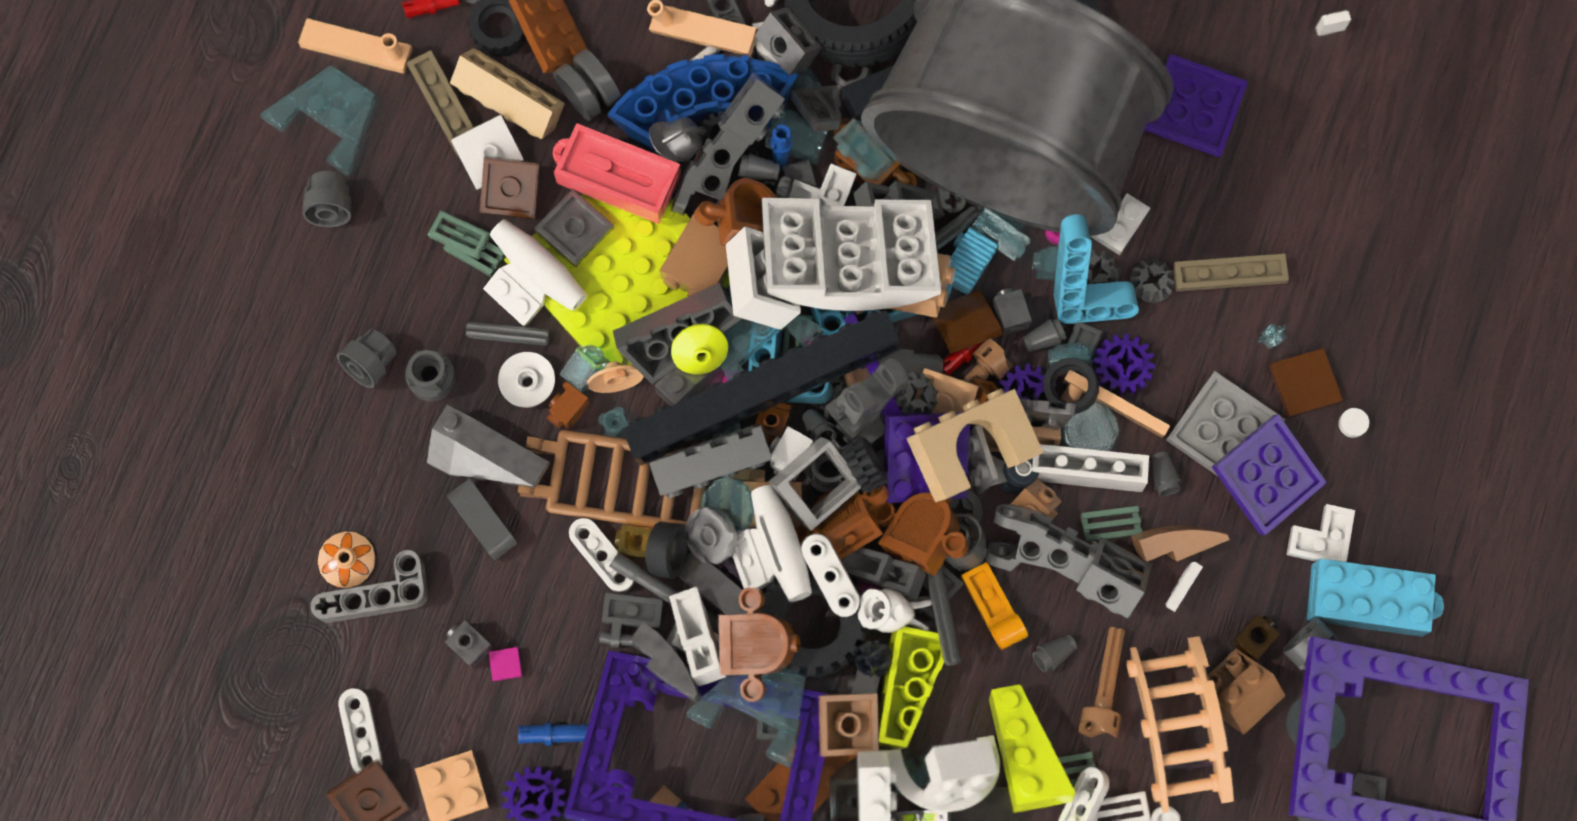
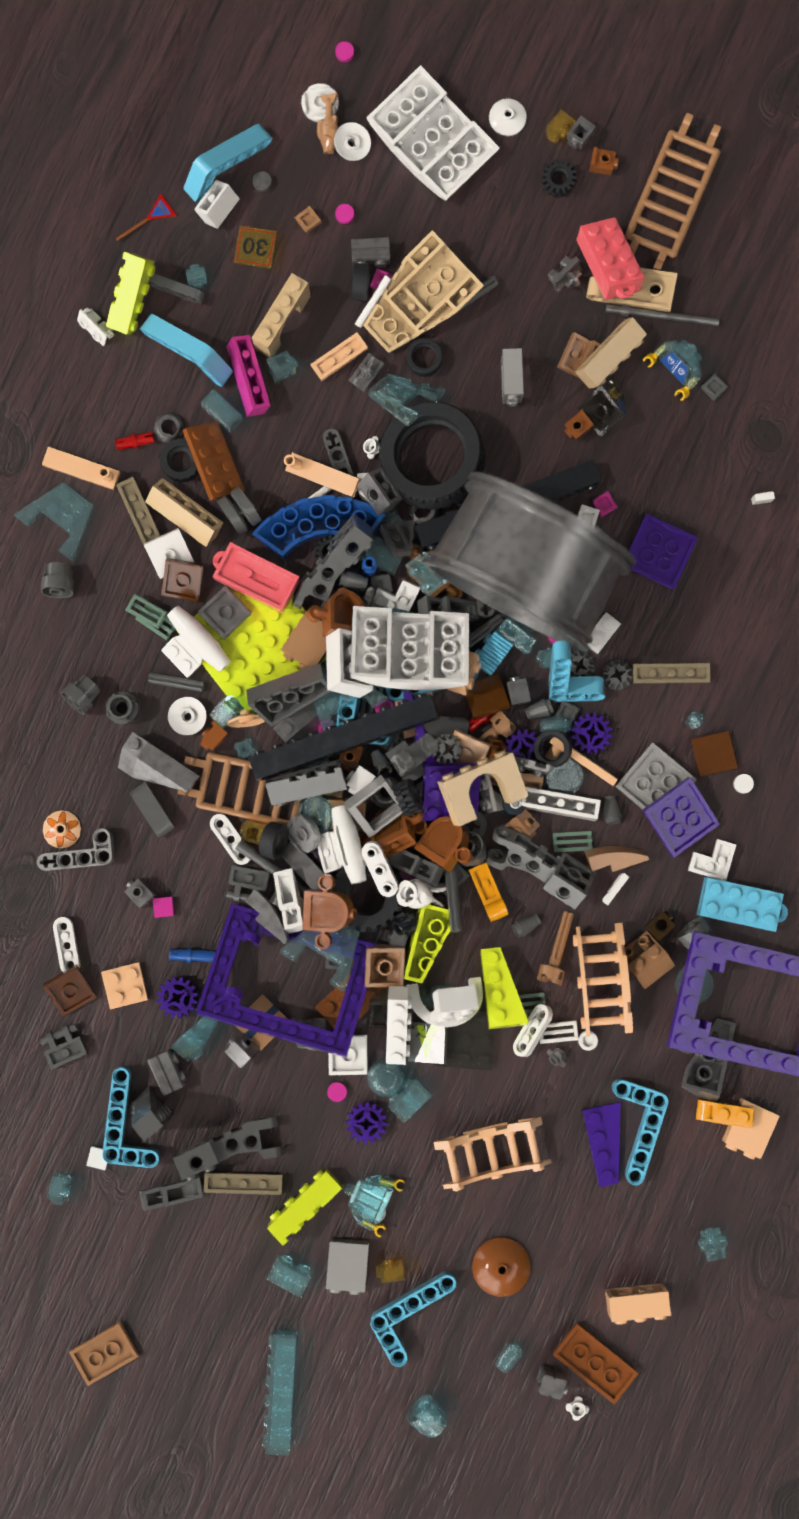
camera: 10 degrees right, 10 degrees up
(677, 139) = (298, 557): flat silver piece -> none
(696, 340) = (304, 707): neon yellow dish -> none

